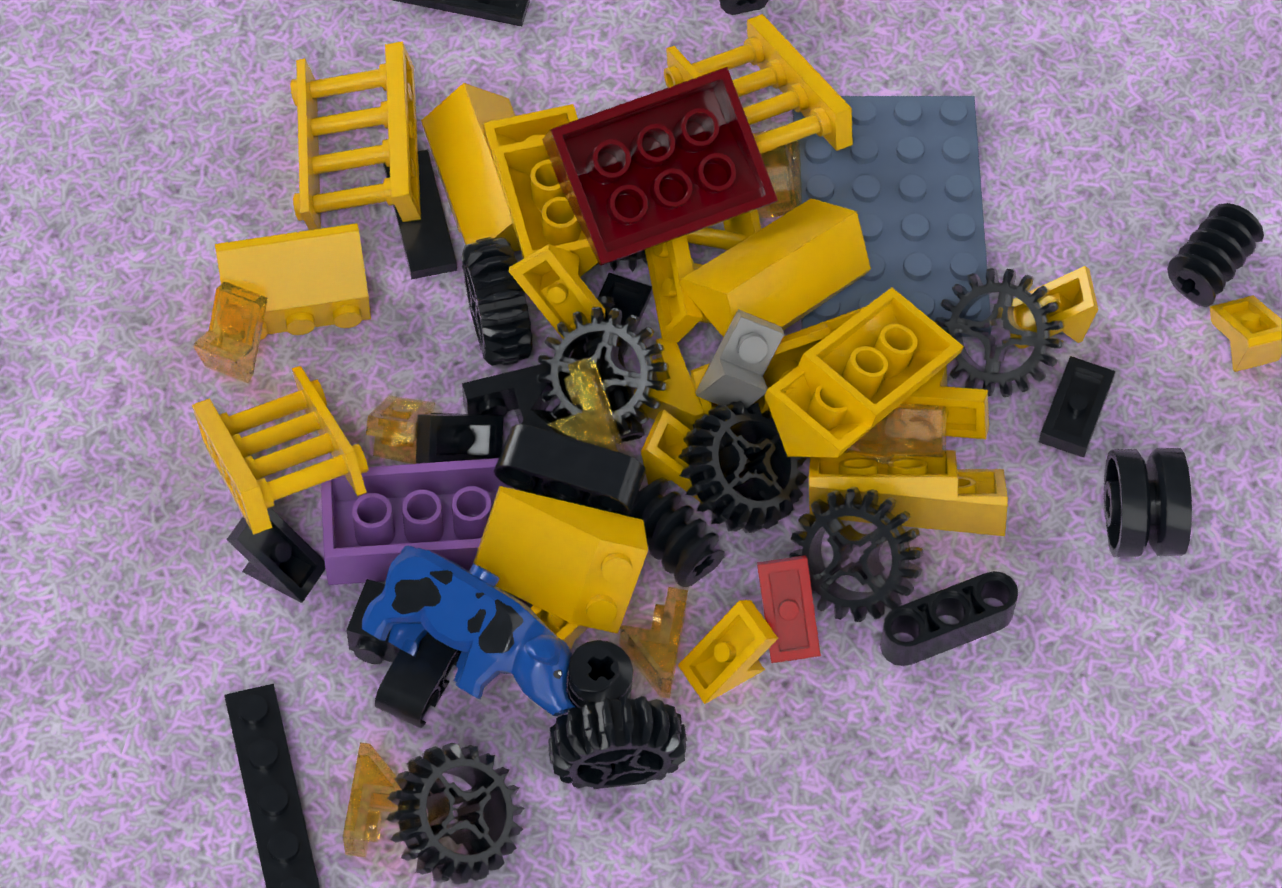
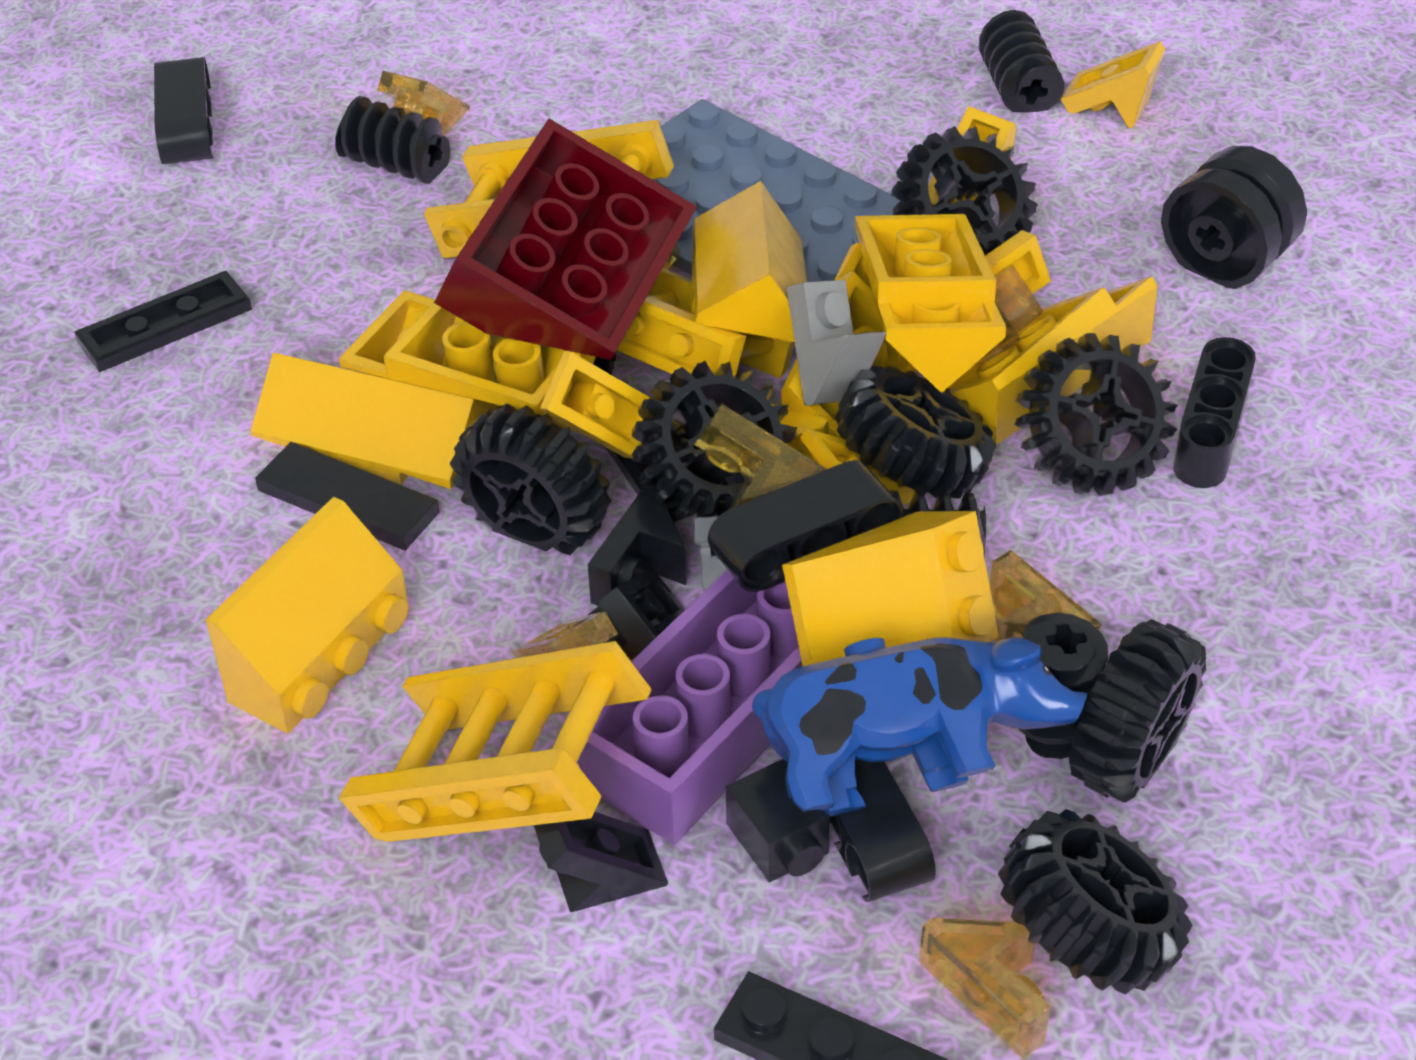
camera: 45 degrees left, 15 degrees down
(233, 332) = (305, 701): clear yellow slope -> none
(397, 152) = (231, 422): yellow fence -> none
(728, 652) = (1105, 566): yellow slope -> none
(789, 608) = (1100, 500): red plate -> none
(1077, 406) = (1077, 219): black plate -> none

